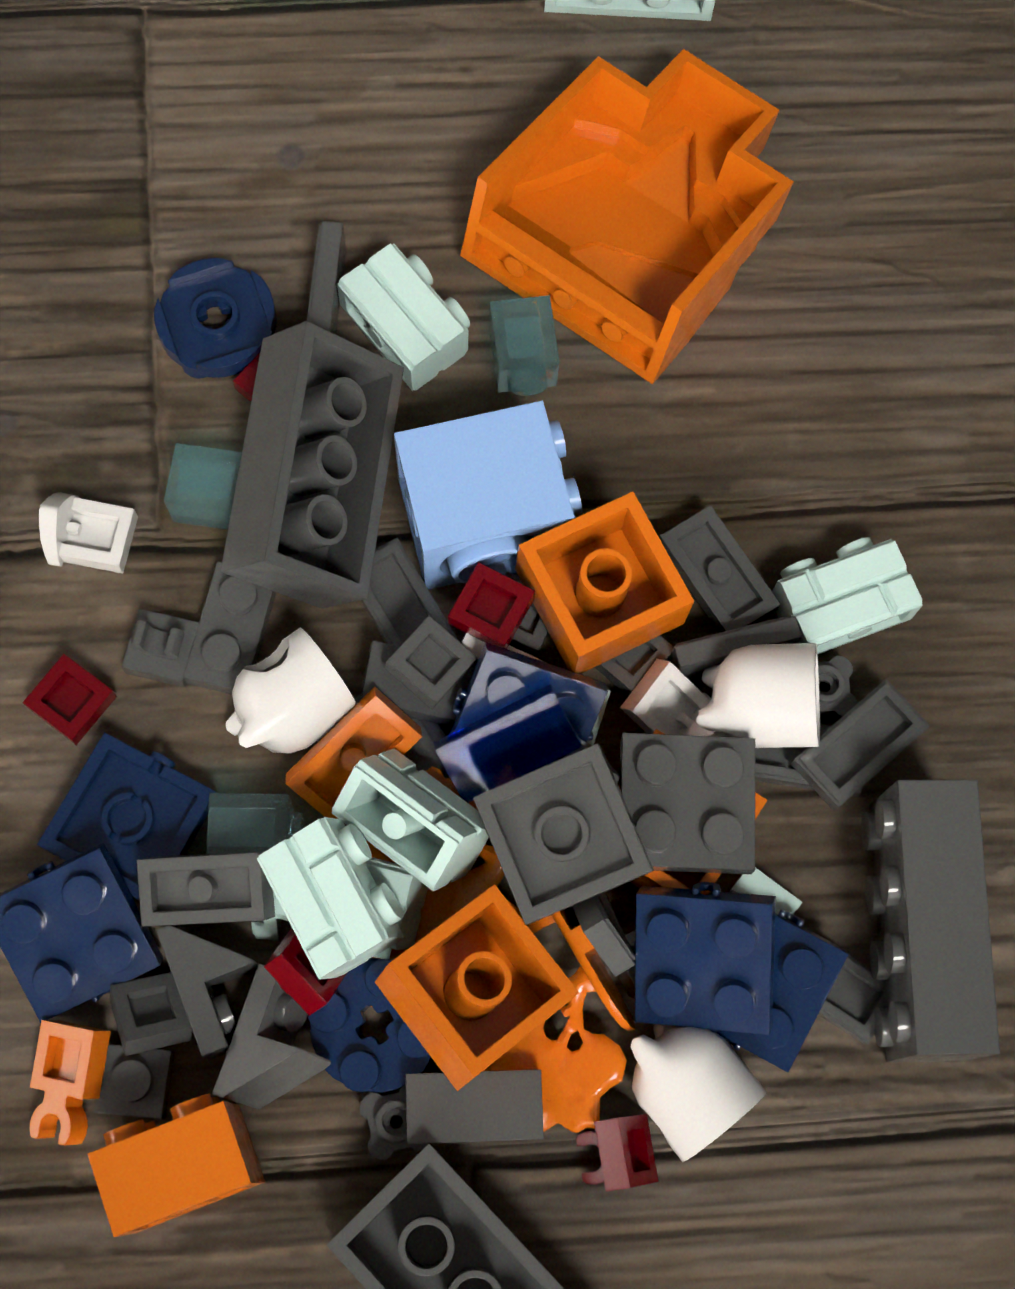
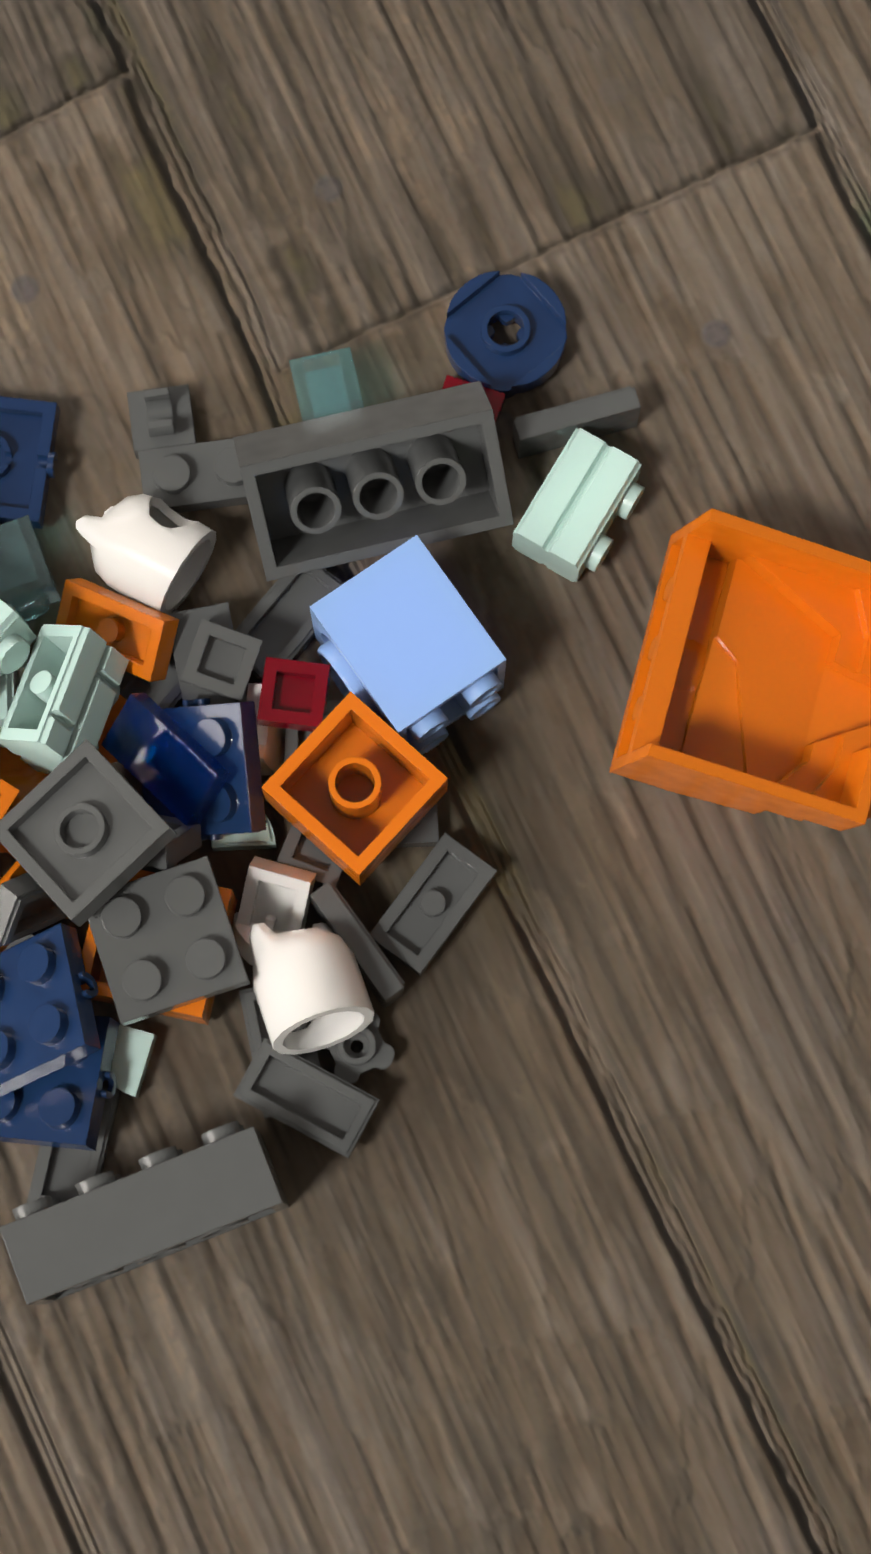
camera: 75 degrees right, 5 degrees up
(70, 699) = (79, 360): dark red plate -> none
(86, 532) = (245, 305): white tile -> none
(524, 345) = (593, 631): clear light blue brick -> none
(850, 595) = (453, 1033): light aqua brick -> none

